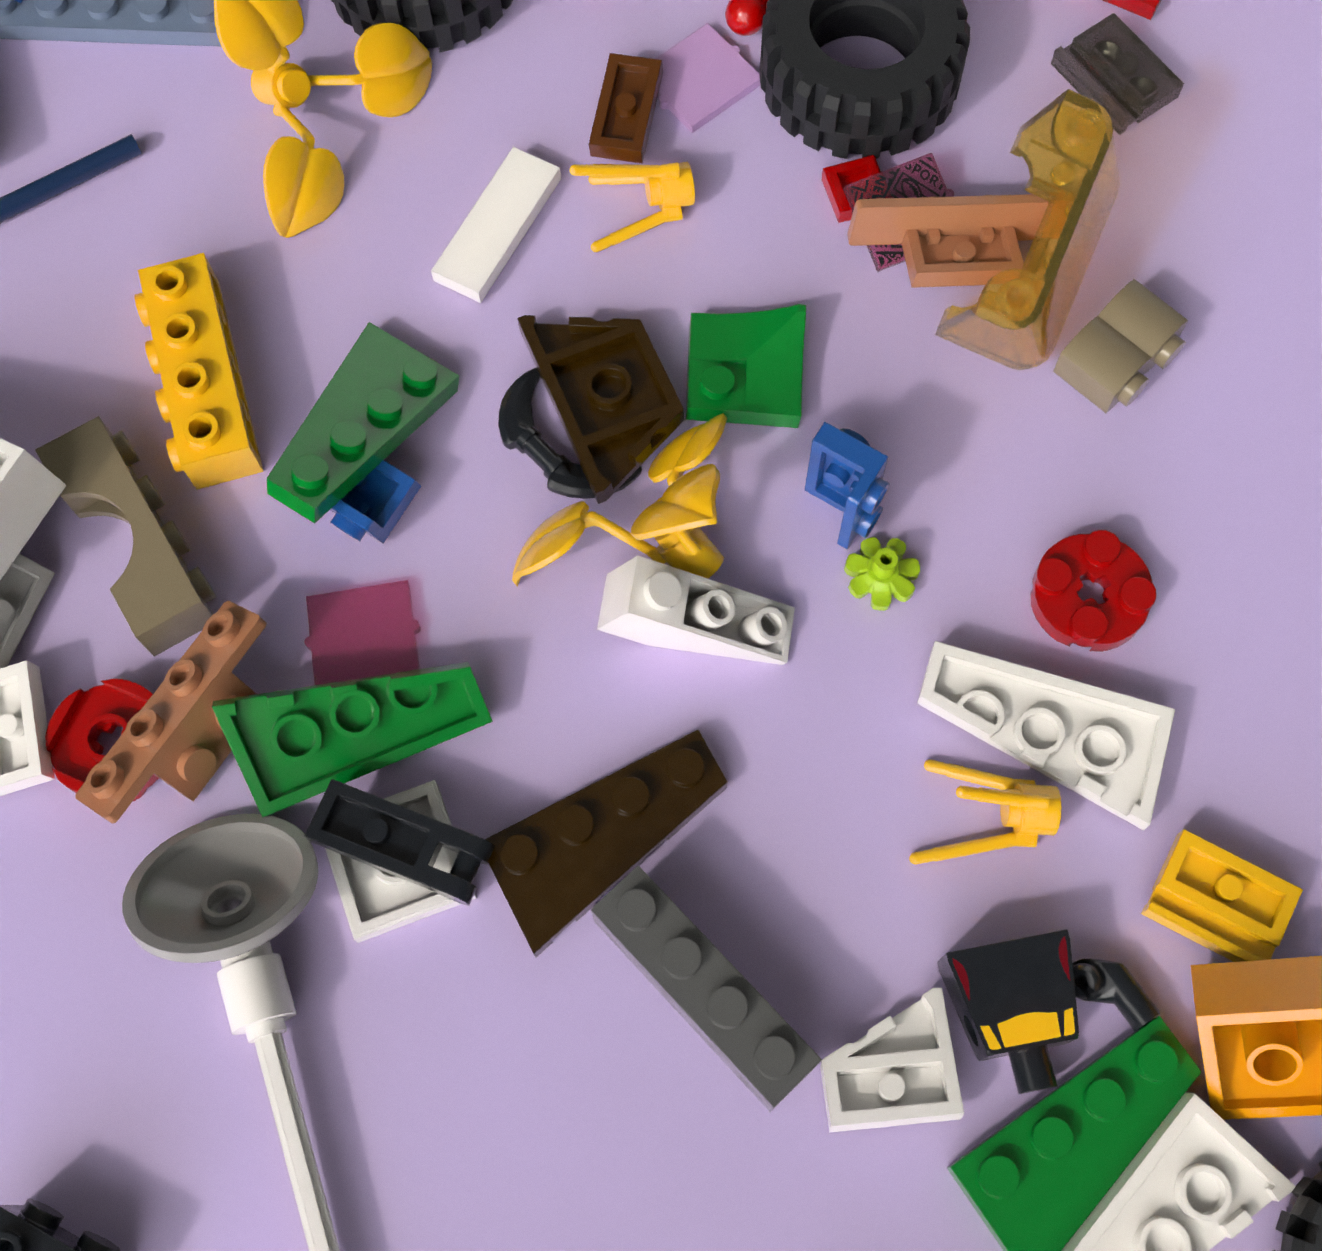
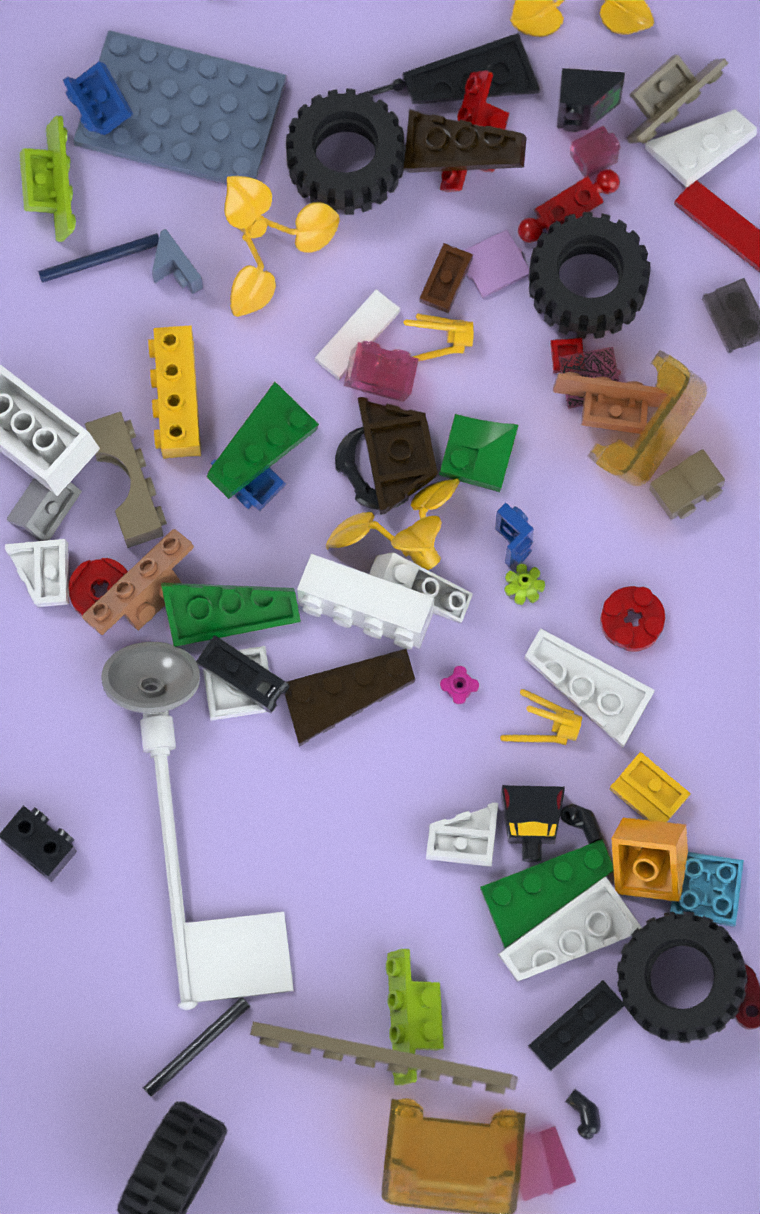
camera: 10 degrees right, 5 degrees up
(159, 167) = (171, 258): none -> sand blue slope
(362, 632) = (240, 559): clear pink piece -> none
(549, 266) = (381, 371): none -> clear pink brick
(602, 657) = (365, 602): none -> white brick
(705, 988) = (380, 778): dark grey brick -> none
(812, 794) = (450, 685): none -> dark pink plate

